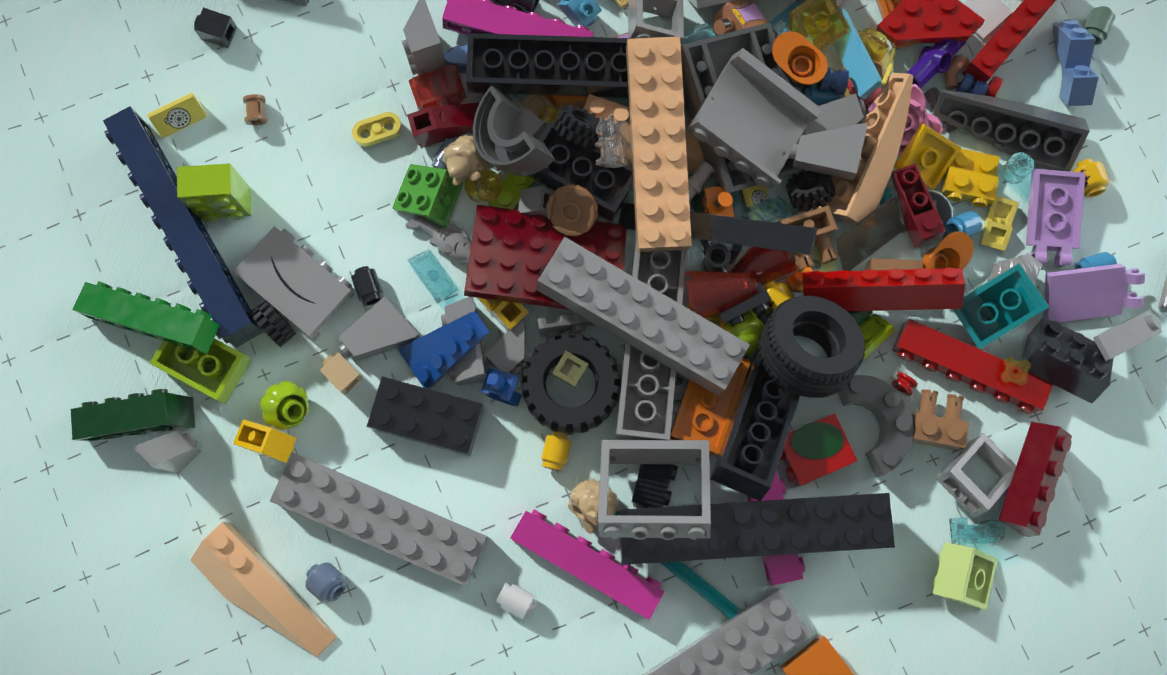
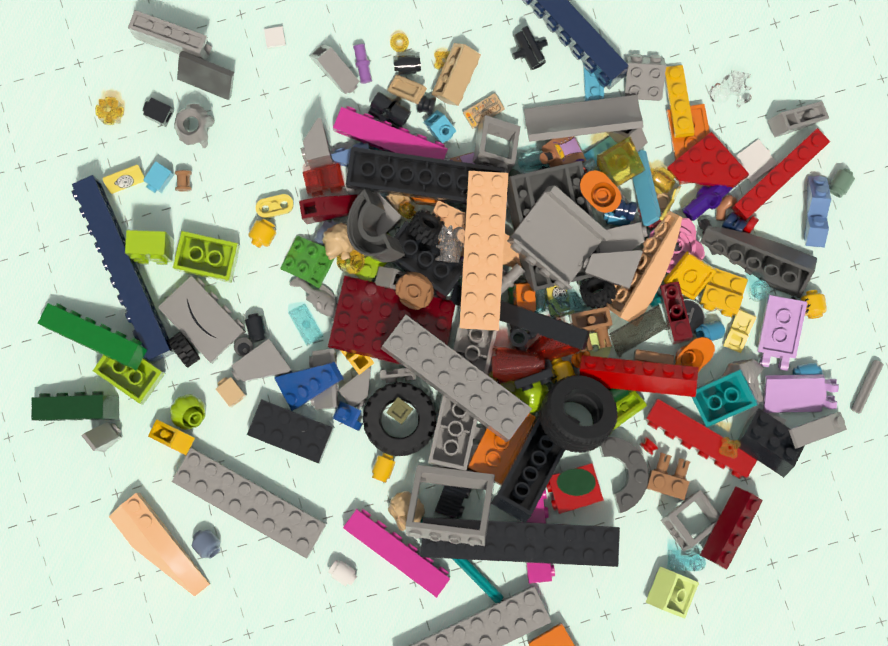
camera: 10 degrees right, 5 degrees up
(151, 32) = (114, 115): none -> clear yellow brick
(221, 109) = (158, 178): none -> medium azure brick
(269, 42) = (182, 125): none -> light grey piece
(292, 200) = (206, 257): none -> lime brick
(351, 312) = (243, 346): none -> dark grey tile
(364, 164) = (262, 233): none -> yellow head

